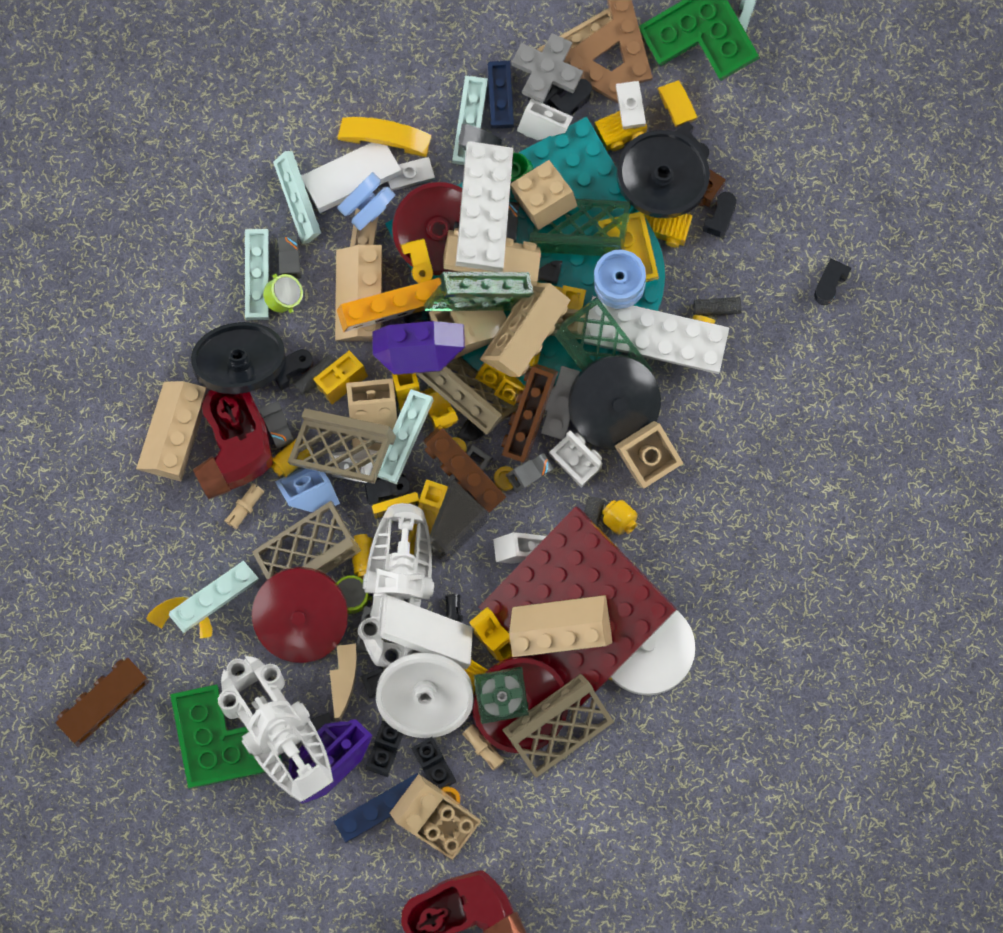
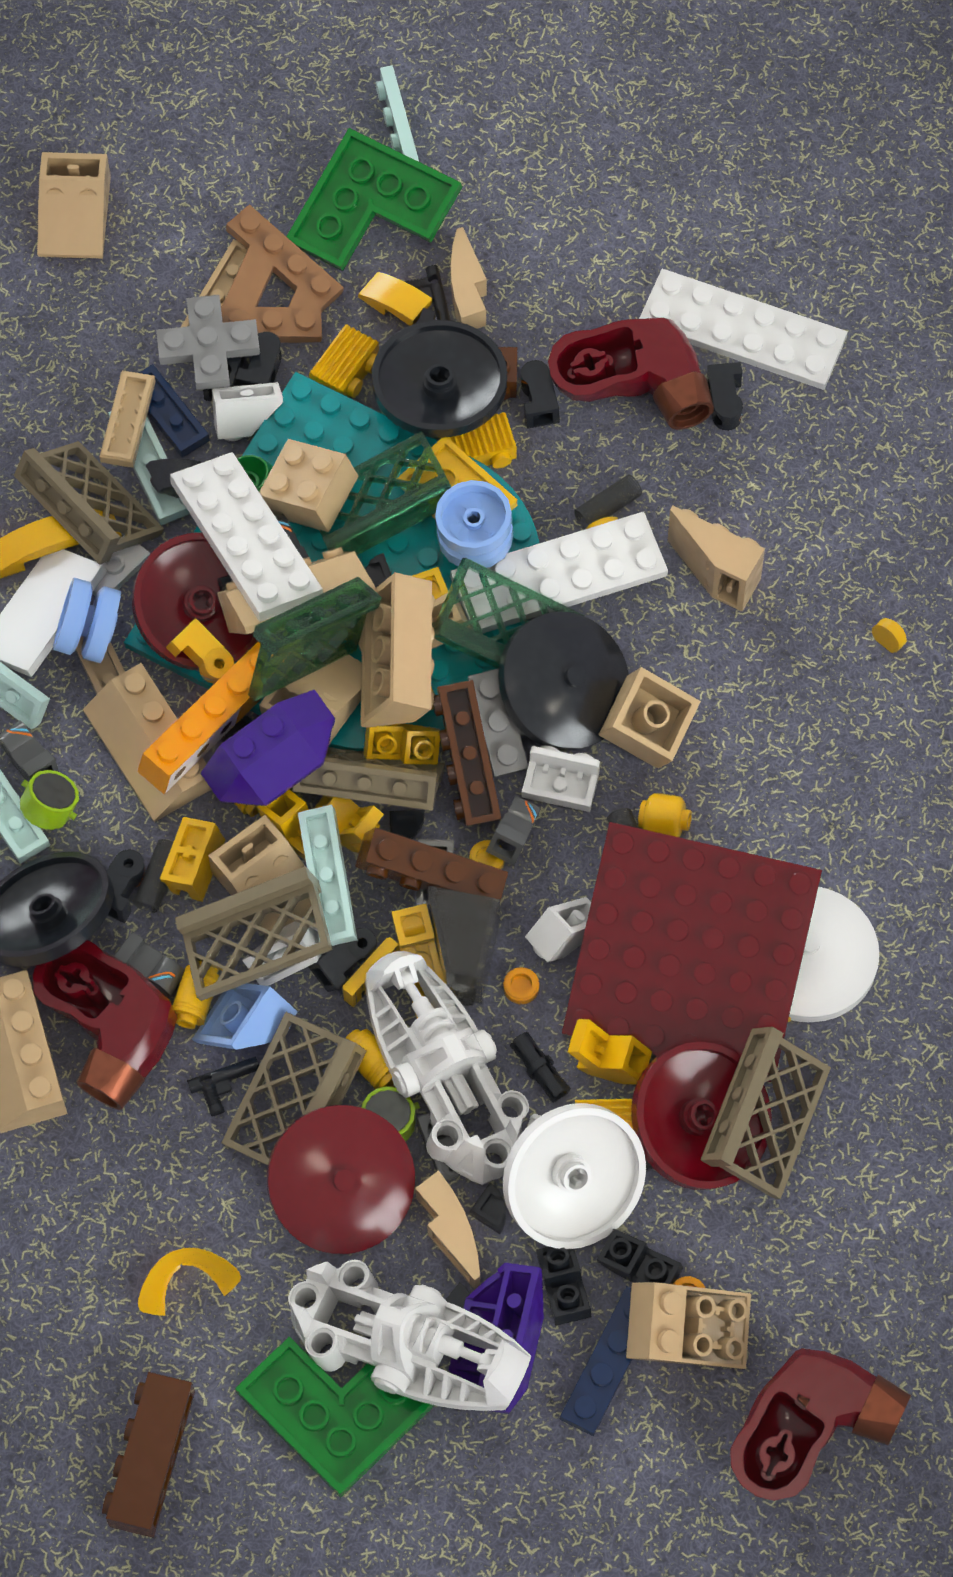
camera: 30 degrees left, 10 degrees down
(213, 596) = (210, 1227): light aqua plate -> none
(244, 506) = (173, 1092): tan pin -> none
(274, 516) = (220, 1082): none -> black hose
(403, 123) = (76, 510): none -> dark tan fence
(426, 631) = (519, 1092): white tile -> none
(471, 87) = (127, 419): none -> tan plate
(474, 565) = (521, 985): none -> light orange tile
(483, 747) = (688, 1201): tan pin -> none
(501, 695) = (673, 1112): clear green piece -> none
(560, 626) = (687, 983): tan slope -> none
(630, 105) = (341, 327): white plate -> none
(703, 112) = (434, 290): none -> black hose
(725, 119) = (467, 282): none -> tan slope
(756, 390) = (719, 559): none -> tan slope
(786, 228) = (633, 360): none -> dark red piece
(824, 488) = (889, 635): none -> yellow tile
(871, 246) = (747, 329): none -> white plate

